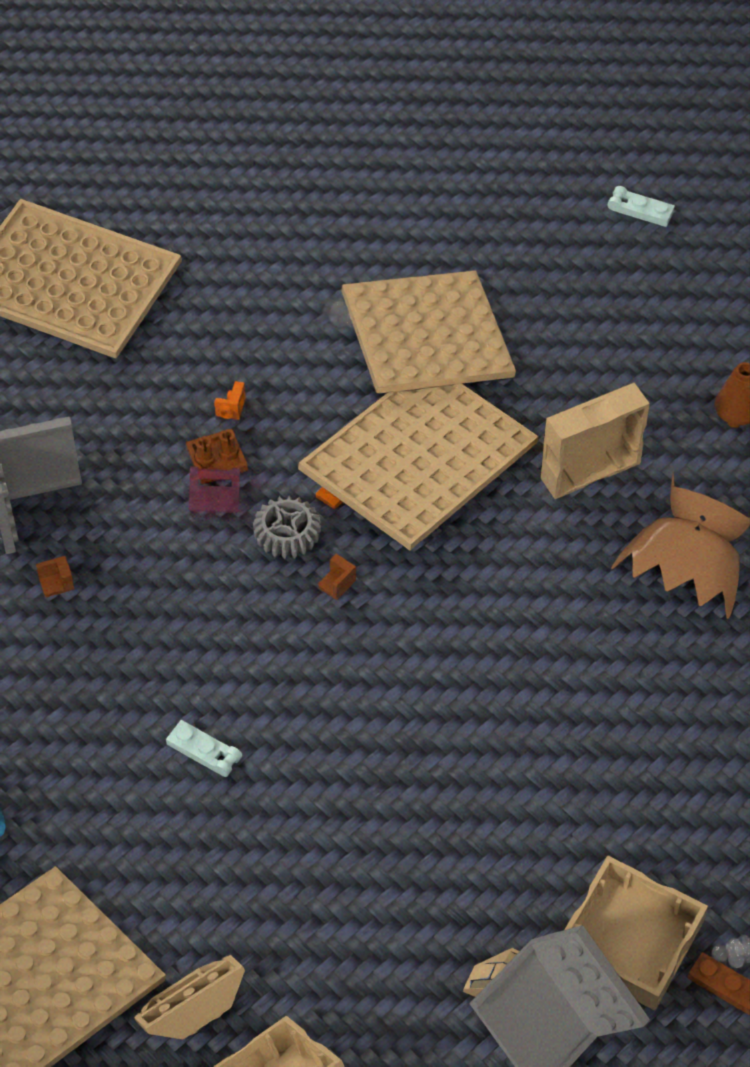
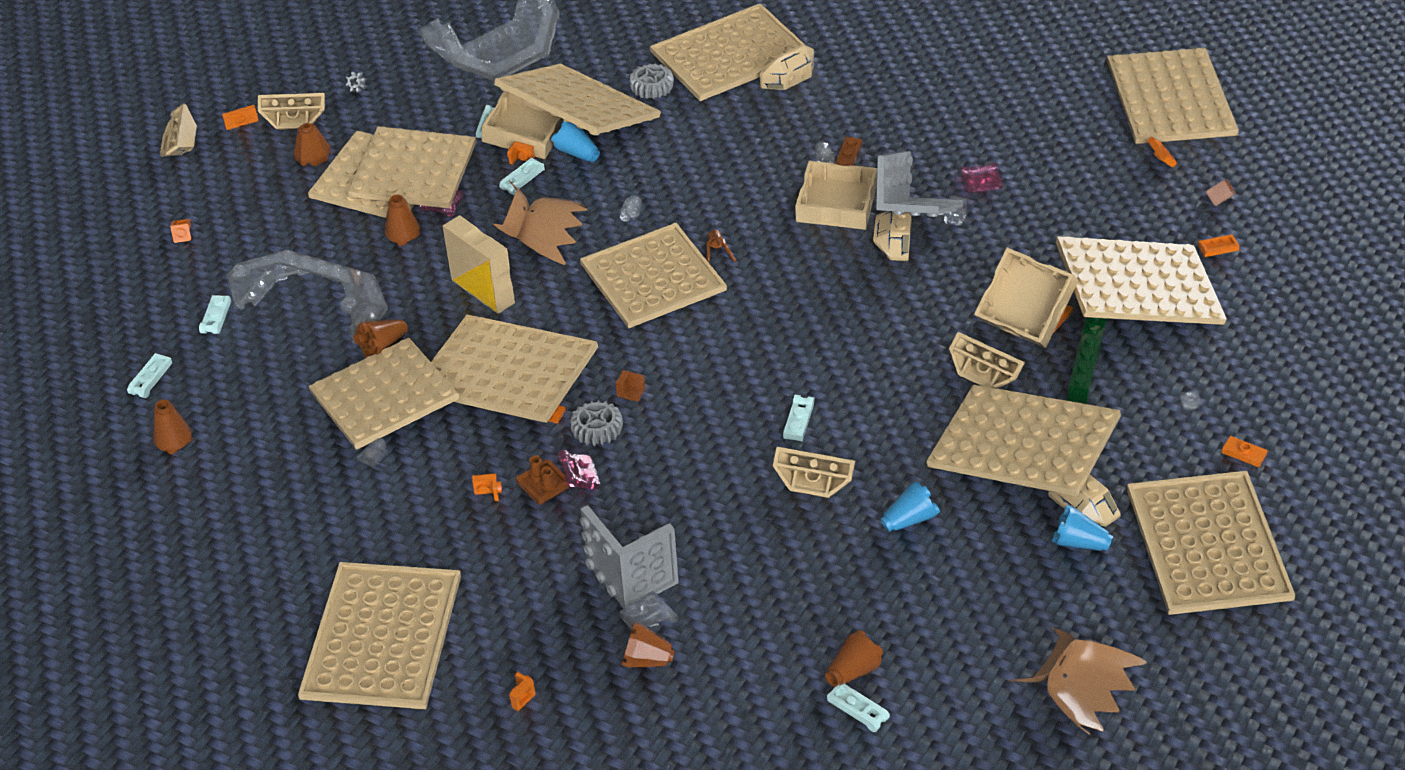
camera: 105 degrees left, 10 degrees down
(55, 576) = (690, 538): dark orange panel -> none
(96, 725) = (812, 472): none -> tan wedge
(447, 140) = (169, 428): none -> dark orange cone
(528, 342) = (378, 335): none -> dark orange cone
(543, 657) = (652, 275): none -> tan plate
(554, 138) = (149, 375): none -> light aqua plate
(587, 747) = (716, 241): none -> dark orange plant
(648, 312) = (255, 277): none -> clear windscreen
(693, 663) = (630, 208): none -> clear piece

